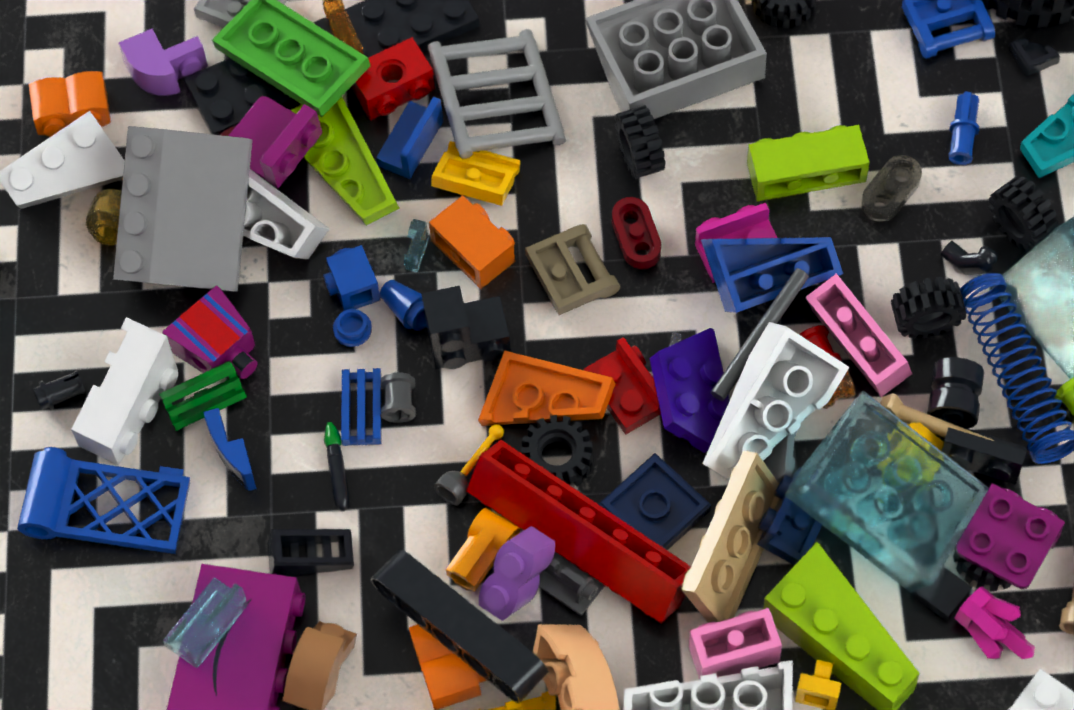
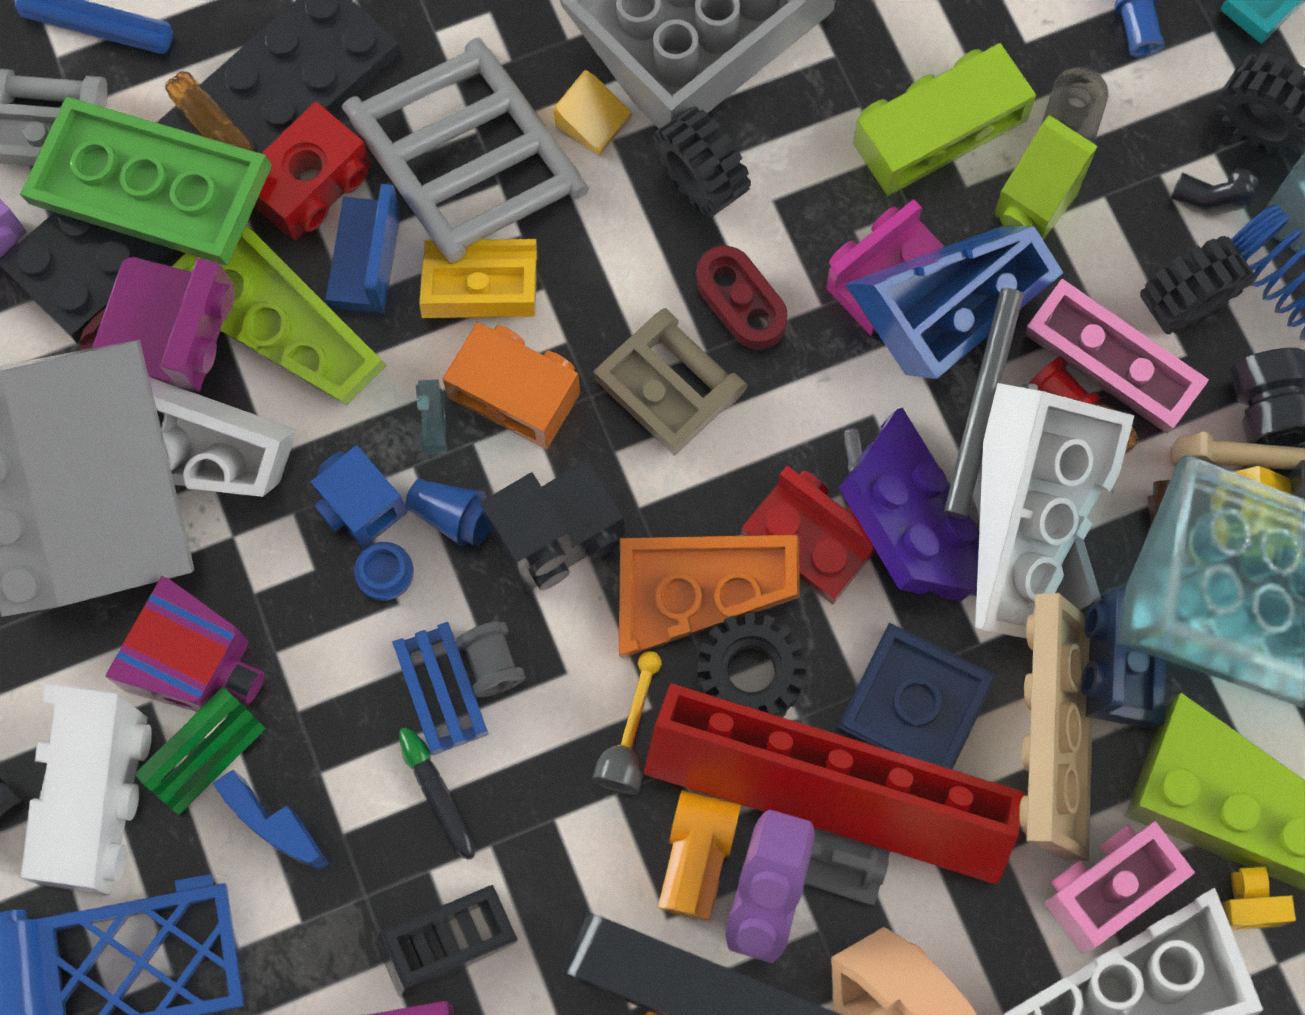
camera: 20 degrees left, 10 degrees up
(583, 95) = (591, 113): none -> yellow slope
(855, 216) = (1045, 178): none -> lime slope

